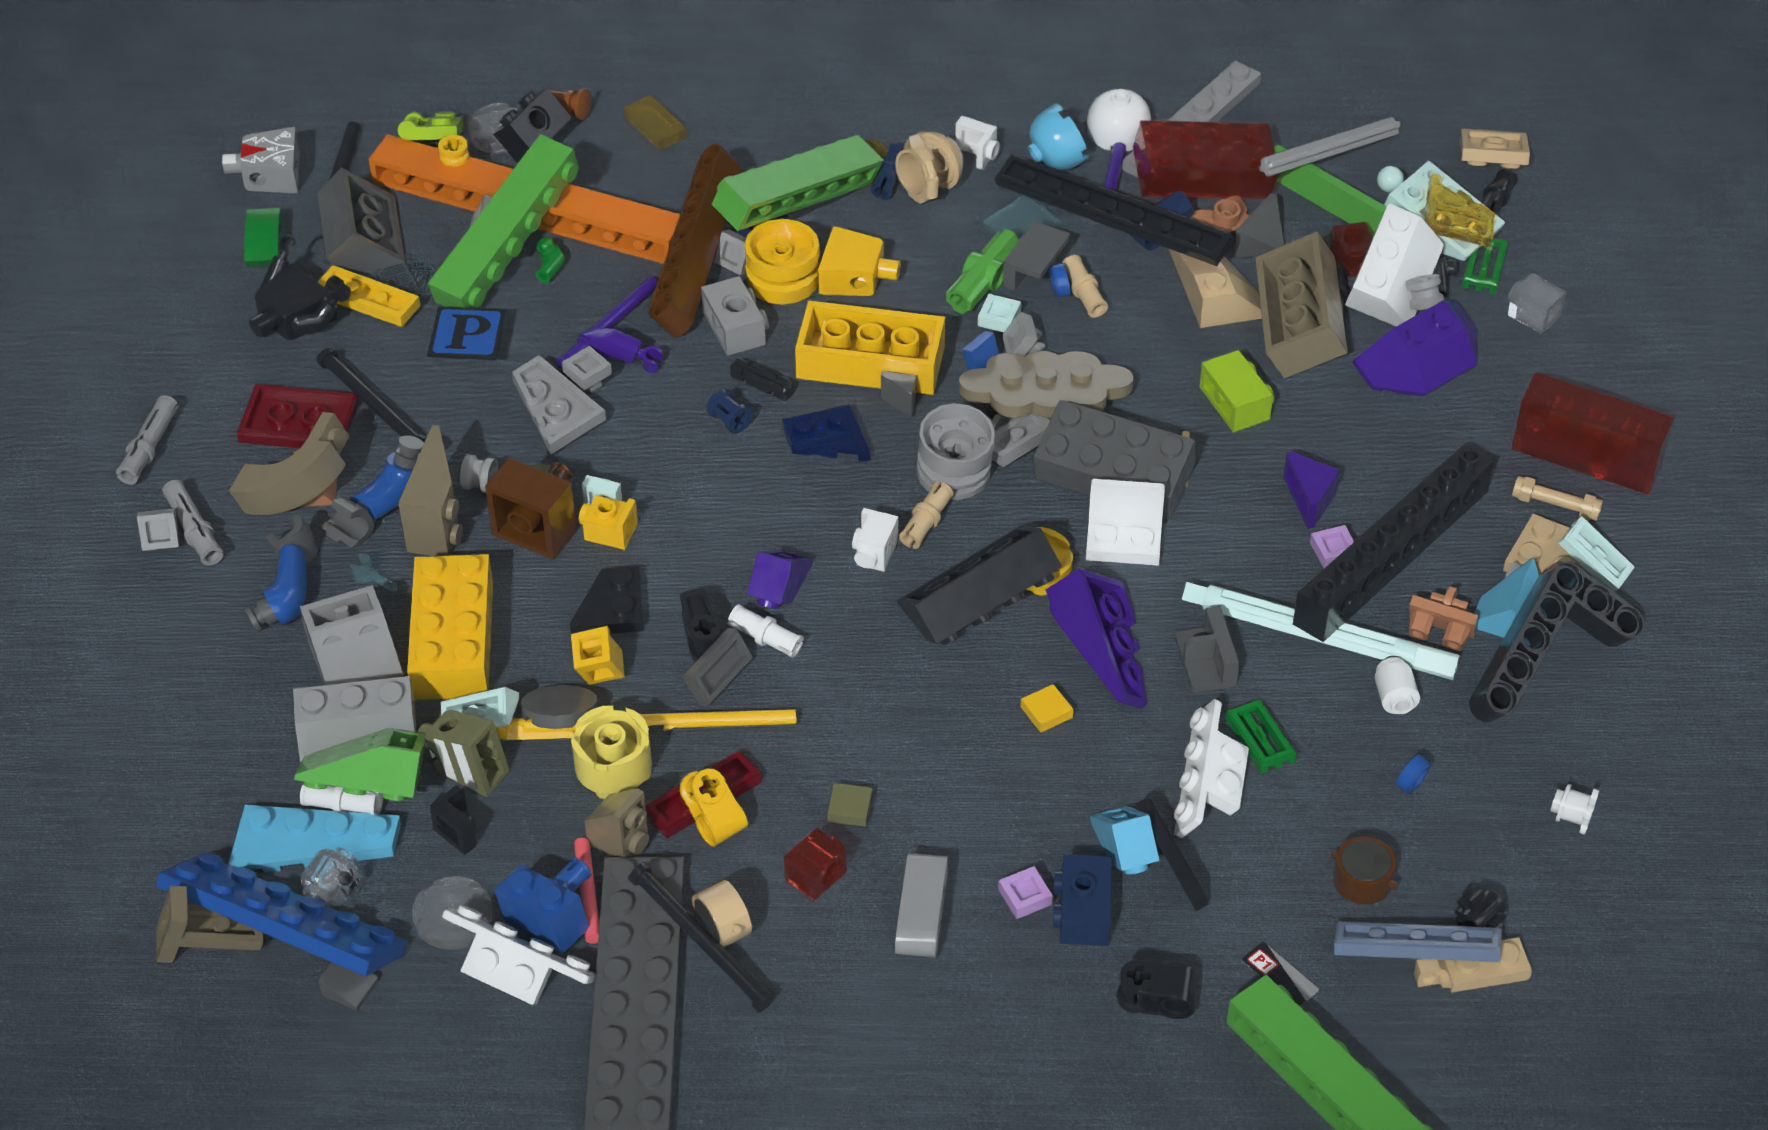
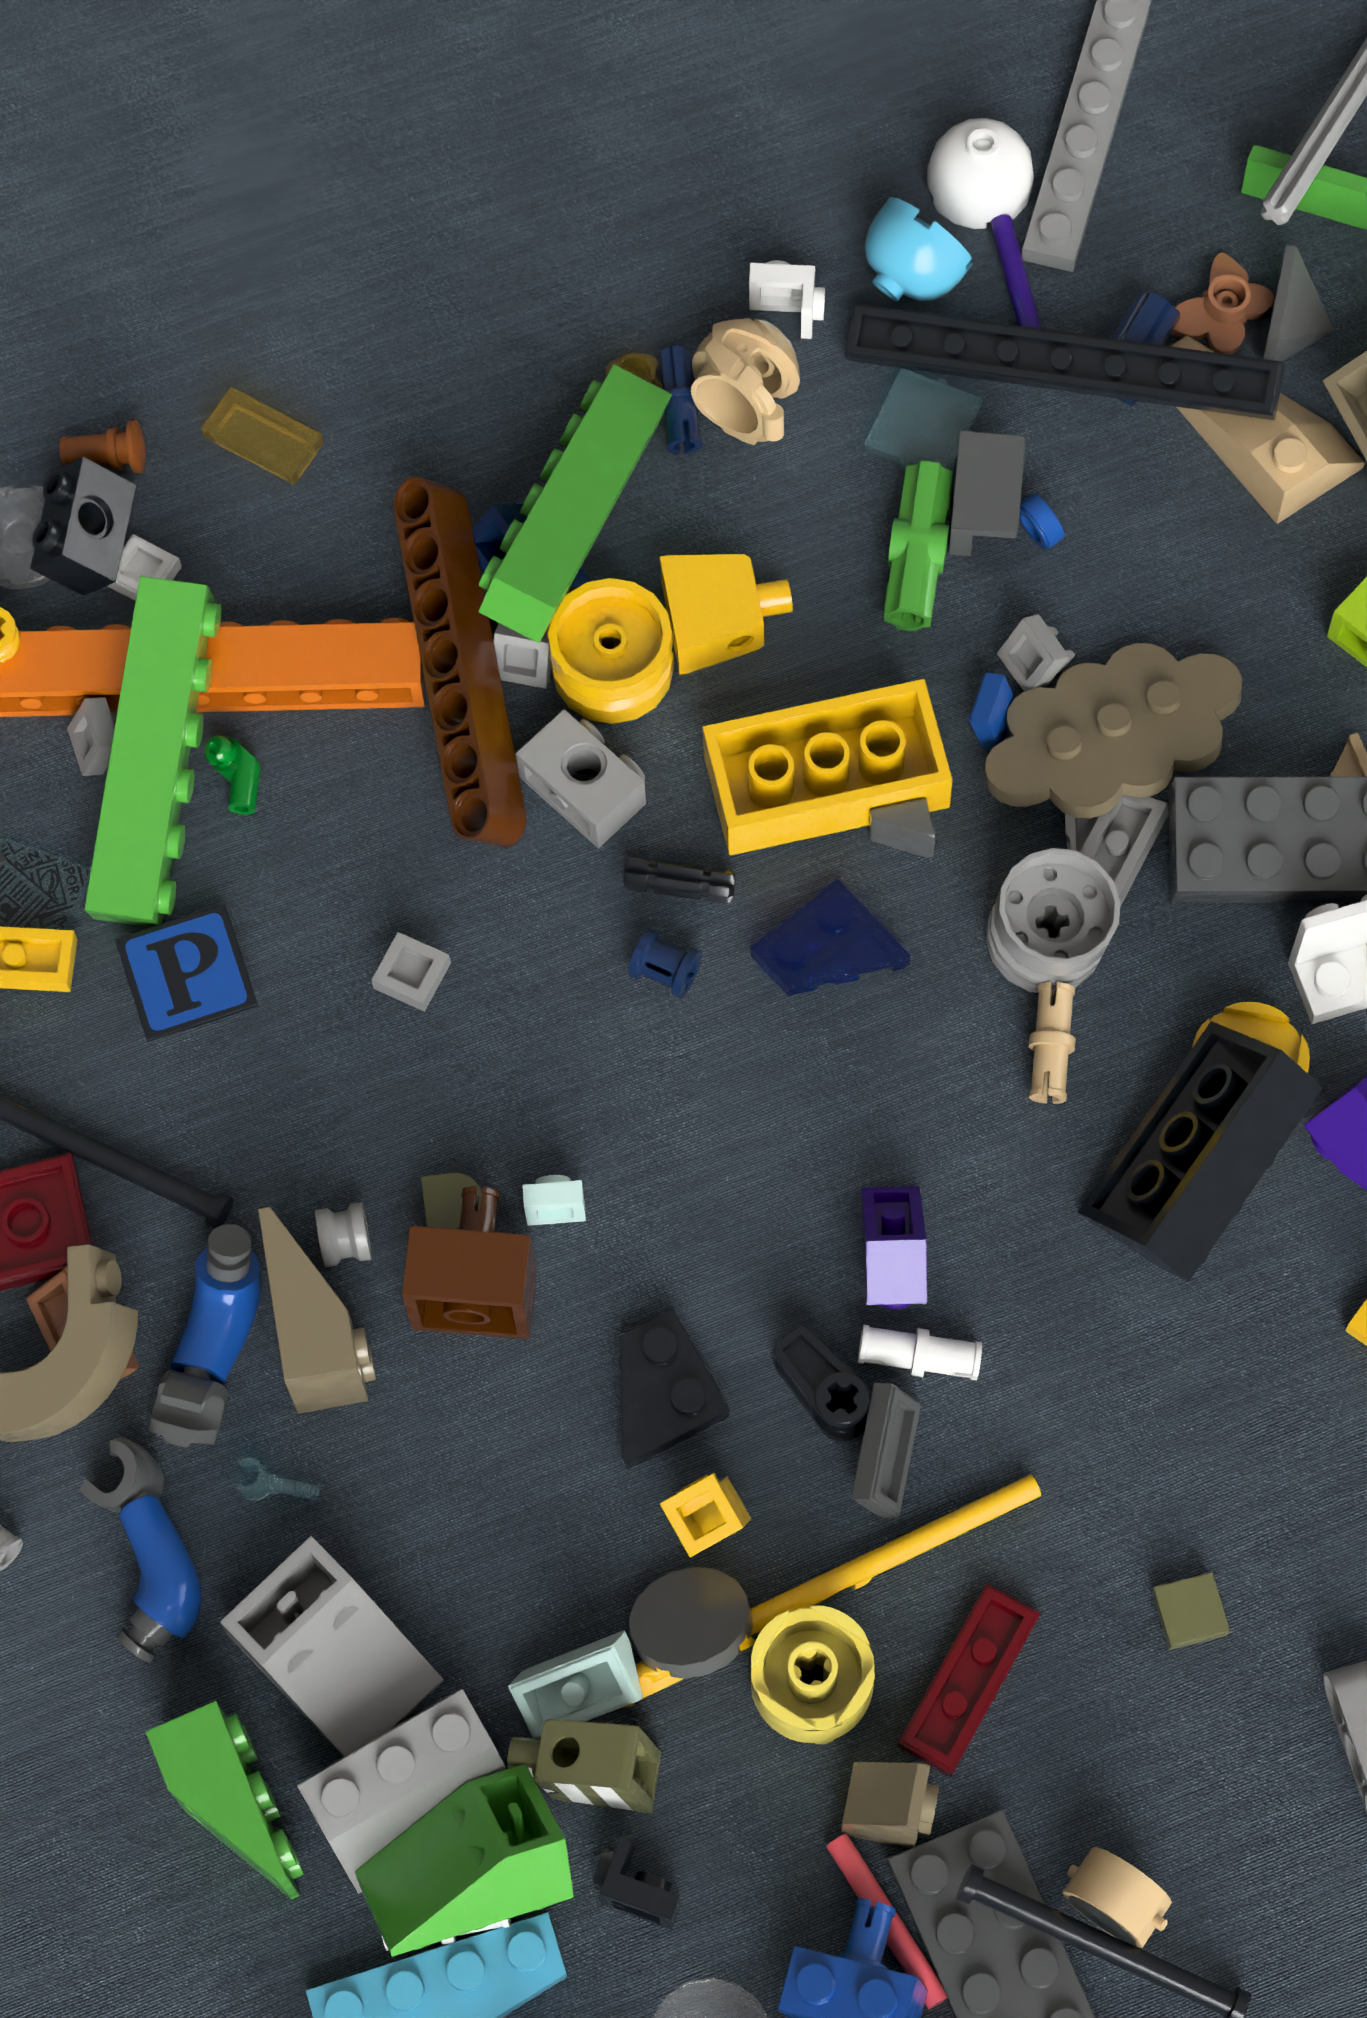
camera: 20 degrees left, 20 degrees up
(256, 685) = (209, 1775): none -> bright green slope
(450, 626) = (452, 1542): yellow brick -> none
(555, 403) = (390, 1052): light grey wing -> none
(609, 521) = (598, 1259): yellow brick -> none
(616, 345) = (416, 911): dark purple arm -> none
(627, 304) = (395, 828): dark purple bar -> none
(715, 810) = (1005, 1710): yellow piece -> none
(815, 864) = (1201, 1742): clear red brick -> none
(875, 539) = (1001, 1122): white brick -> none
(998, 312) = (978, 618): light aqua plate -> none
(1085, 286) = (1080, 517): tan pin -> none
(1203, 159) = (1155, 213): clear red brick -> none

